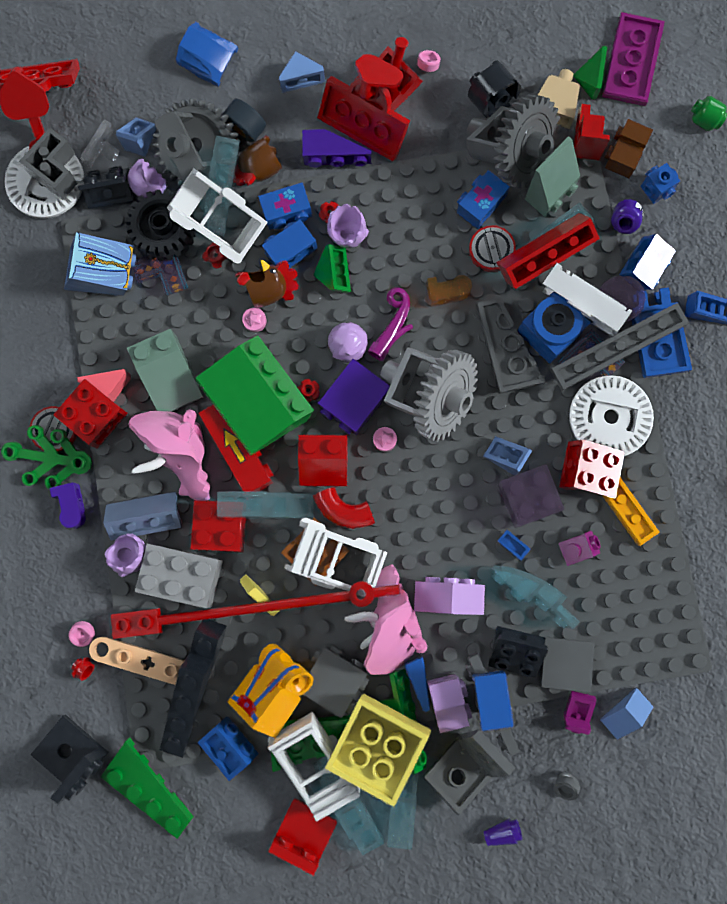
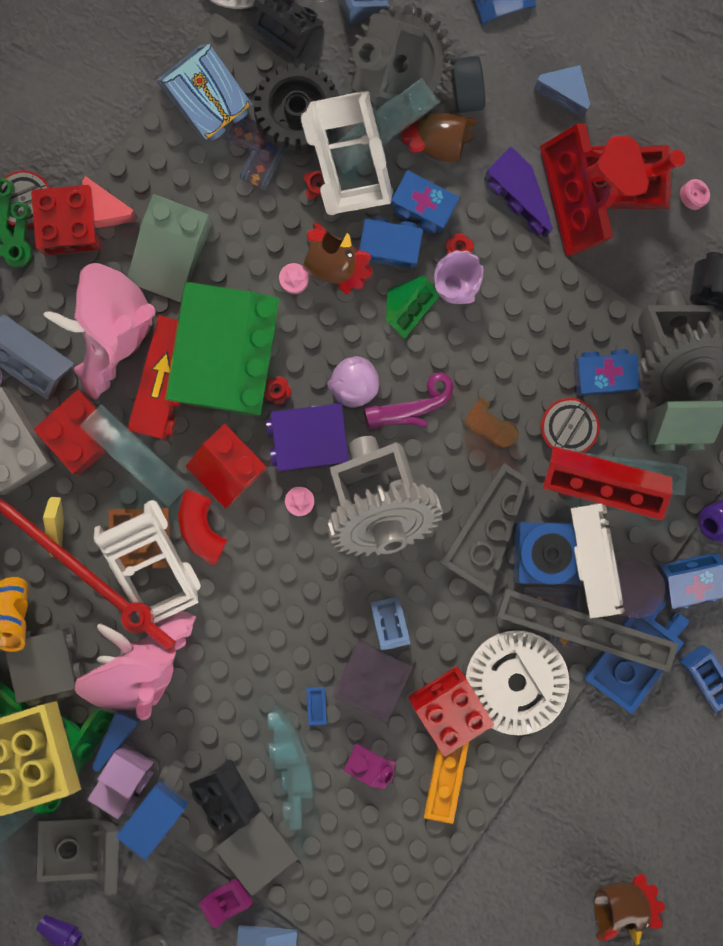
camera: 35 degrees right, 5 degrees up
(145, 179) = (326, 51): lavender hair -> none
(449, 596) = (212, 695): lavender brick -> none

